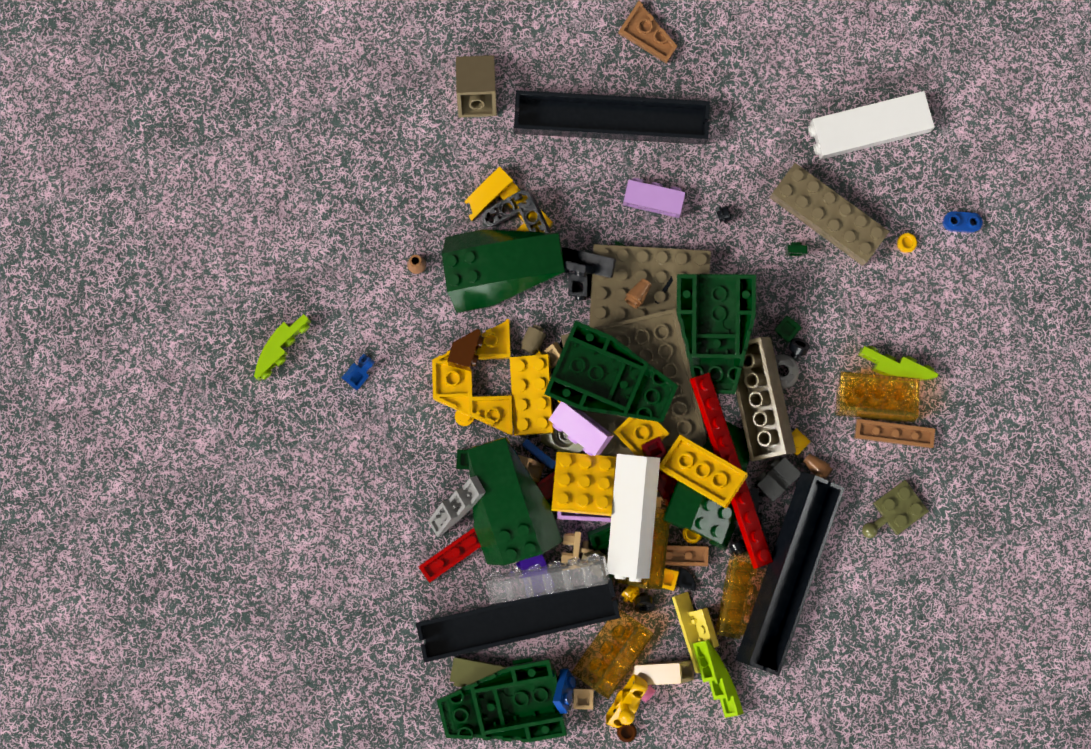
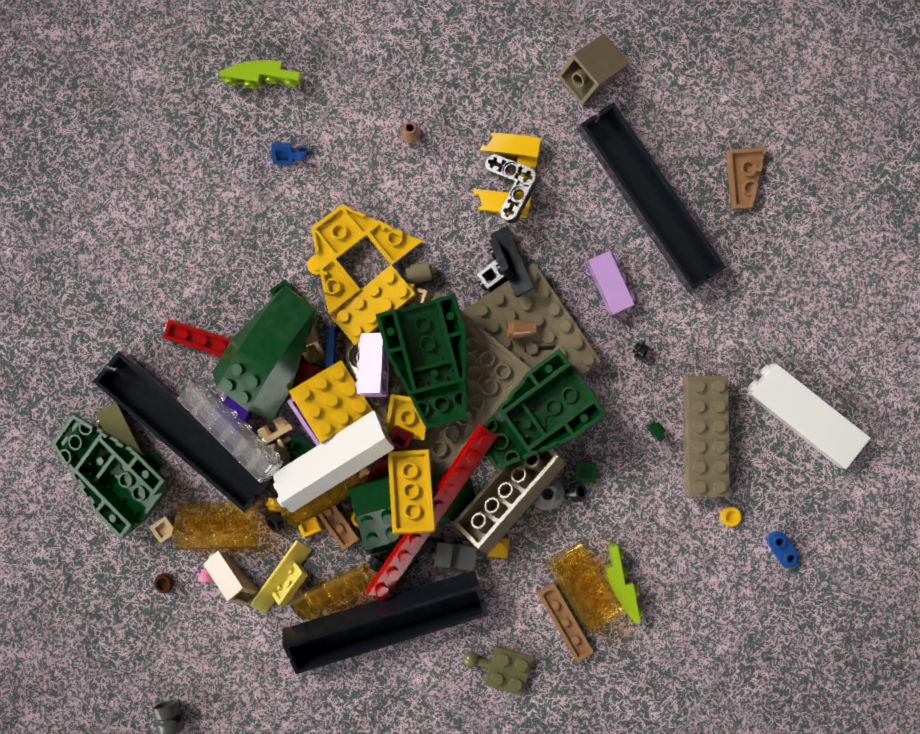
camera: 60 degrees right, 5 degrees up
(457, 506) = (236, 313): light grey slope -> none
(464, 351) = (367, 224): reddish brown slope -> none
(498, 265) = (457, 197): dark green wedge -> none
(564, 691) = (154, 510): blue plate -> none
(627, 702) = (183, 567): yellow piece -> none
(685, 580) = (319, 540): black tile -> none
(715, 672) = (260, 622): lime slope -> none
(817, 466) = (490, 580): medium nougat cone -> none

